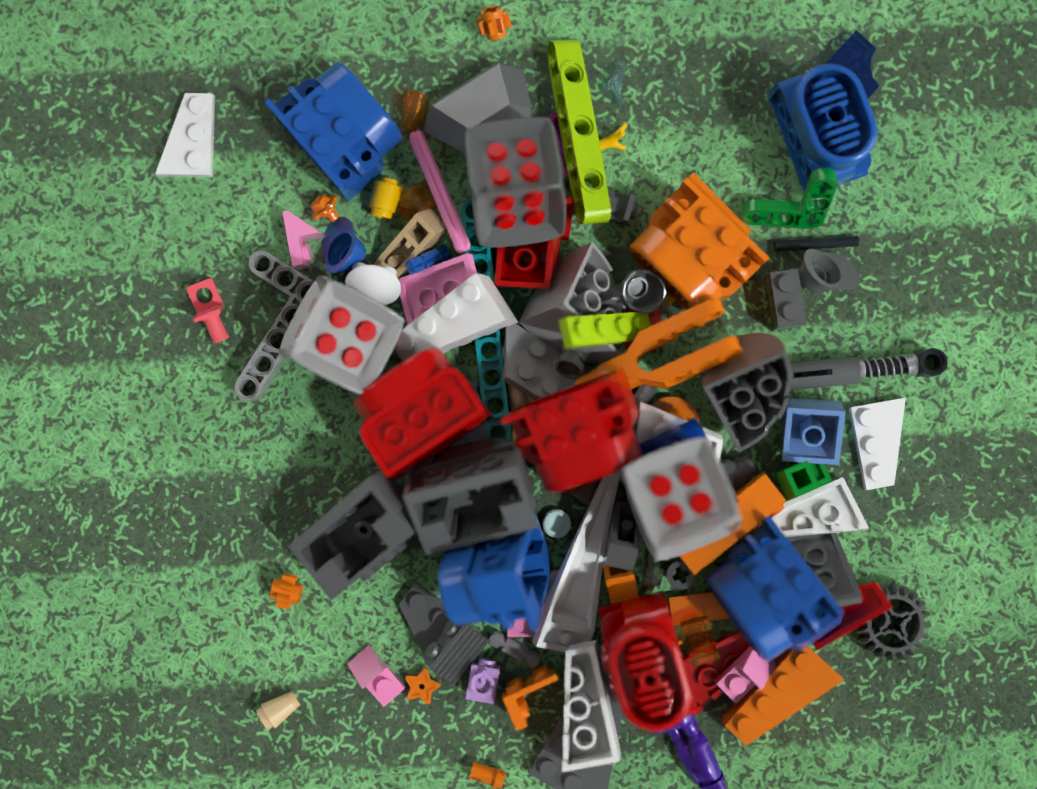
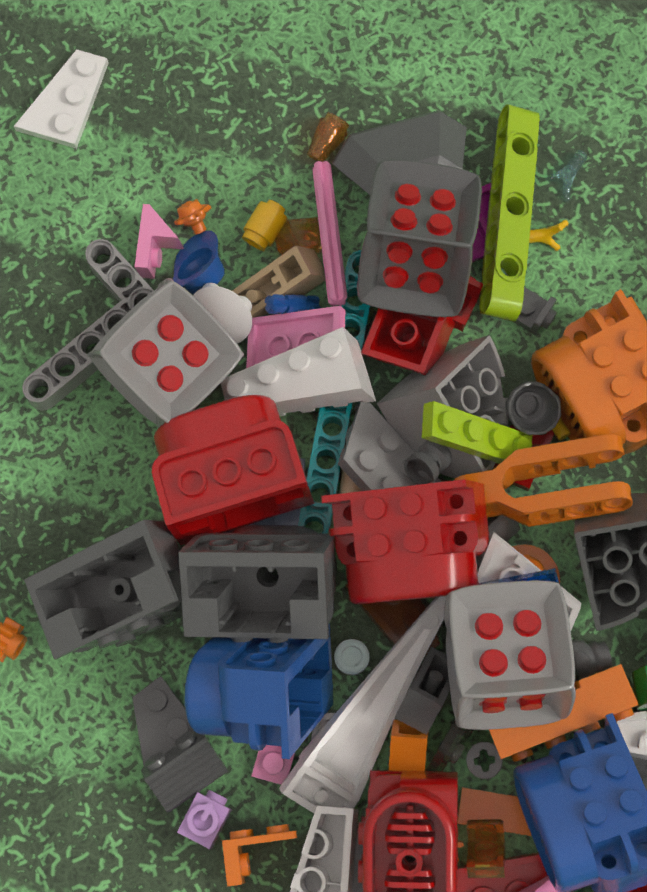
camera: 15 degrees right, 10 degrees down
(209, 311) = (23, 293): coral bracket -> none
(339, 127) = (236, 131): blue brick -> none
(375, 675) = (78, 776): bright pink slope -> none
(422, 678) = (119, 809): orange plate -> none
(493, 22) = (447, 68): orange gear -> none
(514, 649) = (255, 794): light grey axle -> none

